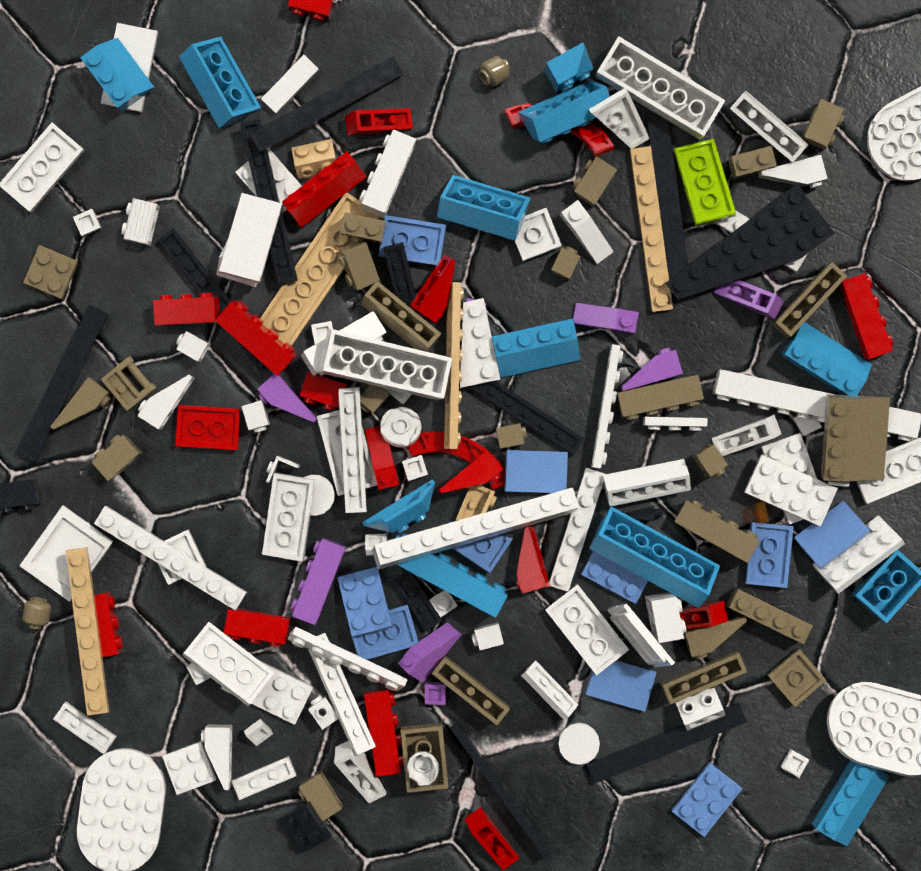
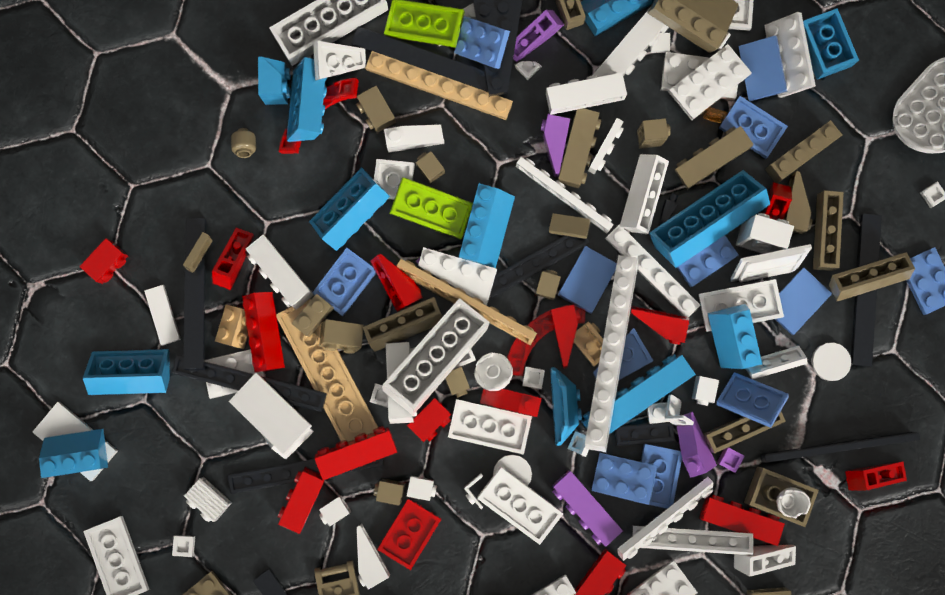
camera: 70 degrees left, 5 degrees down
(237, 388) = (389, 491): none -> dark tan brick
(279, 394) = (416, 457): medium lavender slope -> none
(323, 711) = (698, 562): white brick -> none
(352, 450) = (492, 421): white plate -> none
(363, 86) = (197, 252): none -> dark tan tile
(400, 272) = (365, 305): black tile -> none
(452, 616) = (673, 412): none -> white bracket
(501, 684) = (752, 399): none -> medium blue tile
(526, 285) = (431, 208): none -> lime tile
(552, 638) = (735, 337): none -> dark azure slope
(578, 427) = (569, 226): none -> dark tan tile
(606, 318) = (492, 157): medium lavender slope -> none
(678, 739) = (871, 276): none -> dark tan brick
(700, 708) = (855, 246): white brick -> none
(712, 249) = (482, 42): none -> medium blue plate
(713, 307) = (528, 68): none -> white tile
(714, 376) = (586, 92): none -> white brick
(747, 435) = (647, 93): white slope -> none
(796, 677) = (864, 156): dark tan plate -> none

